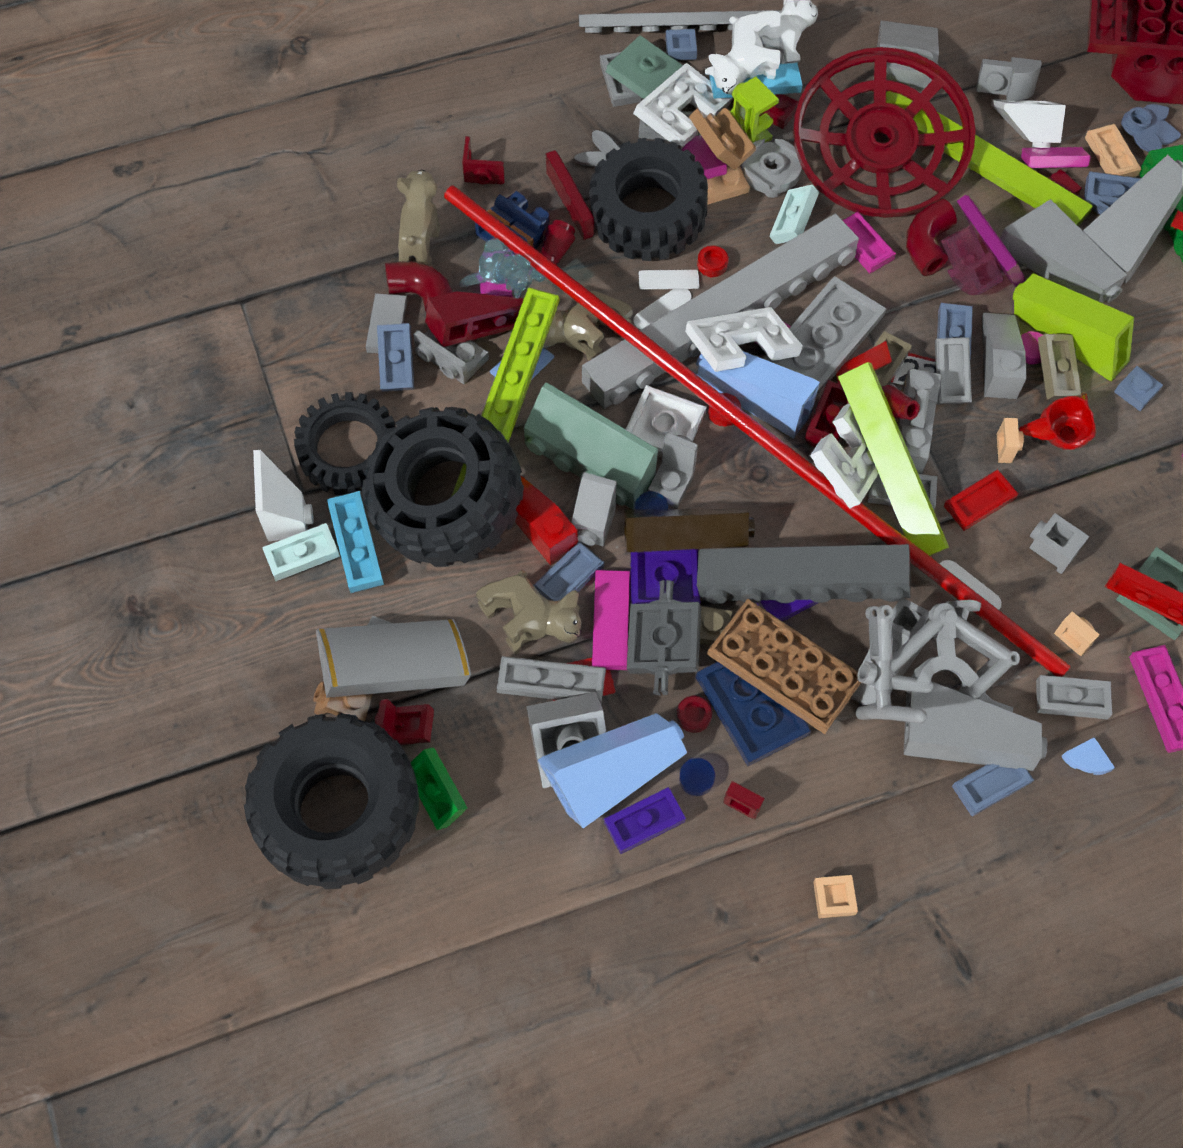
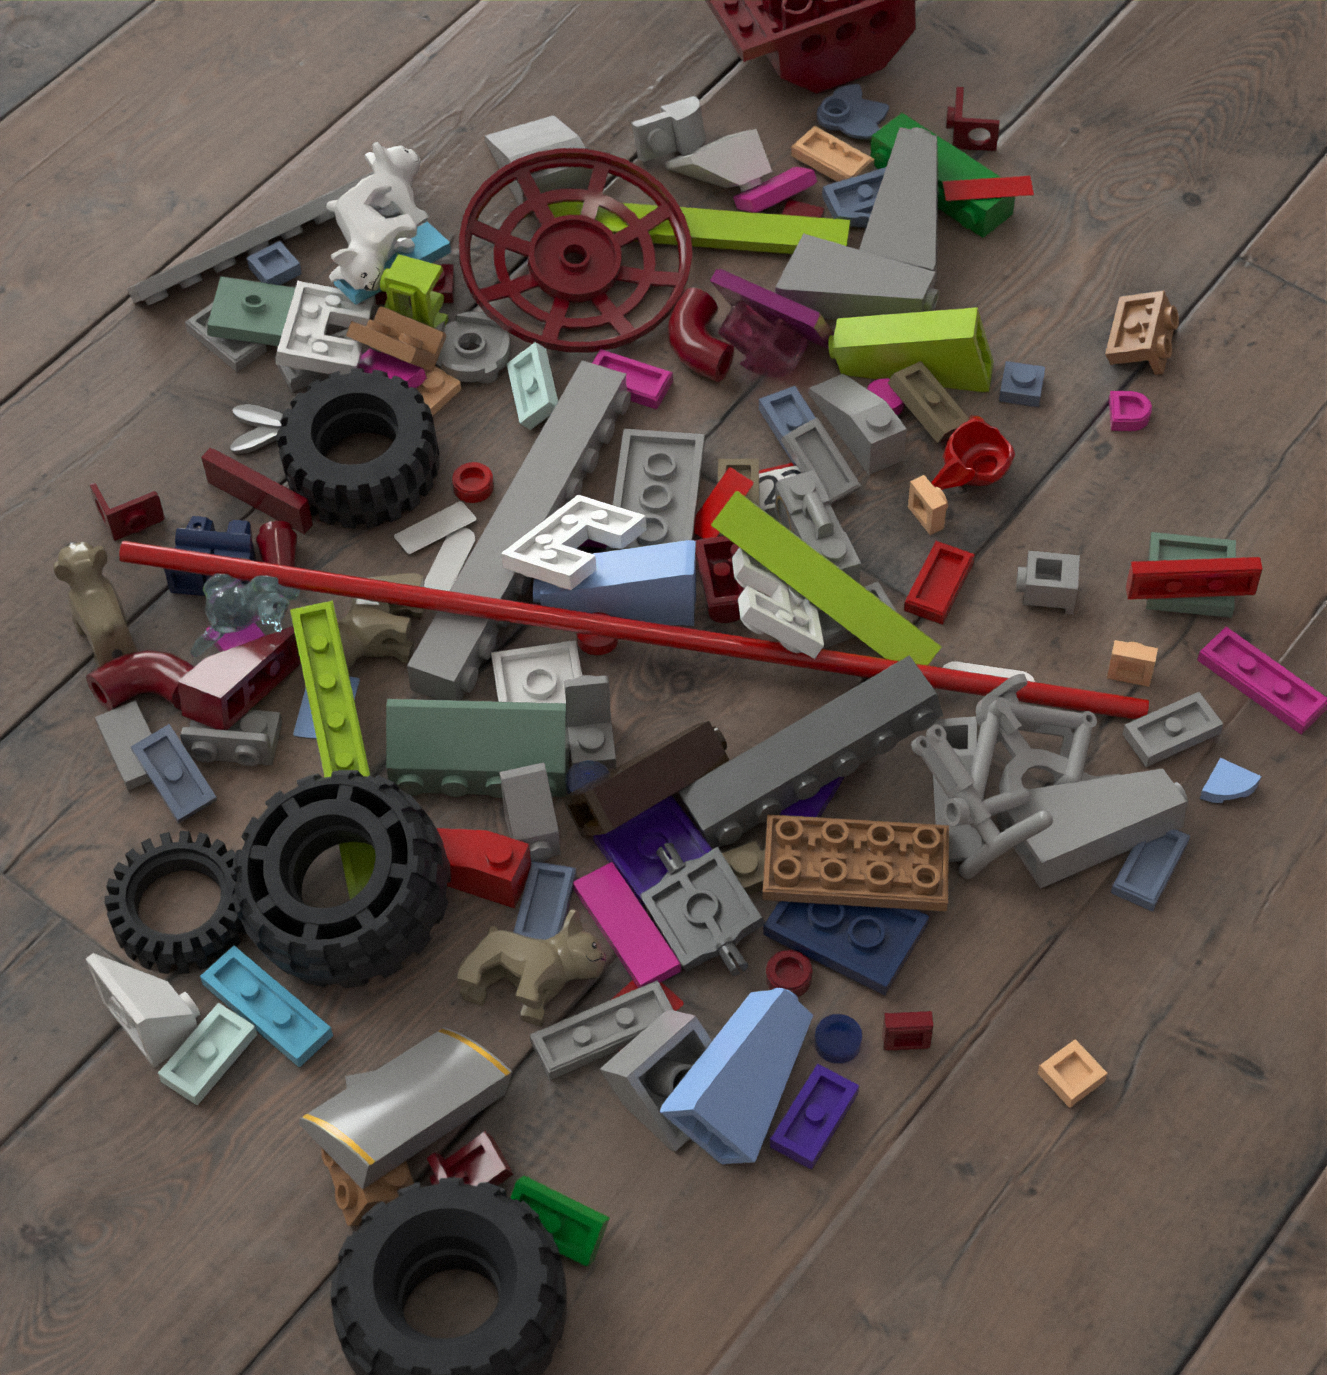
camera: 30 degrees left, 10 degrees down
(900, 403) = (797, 519): dark red cone -> none

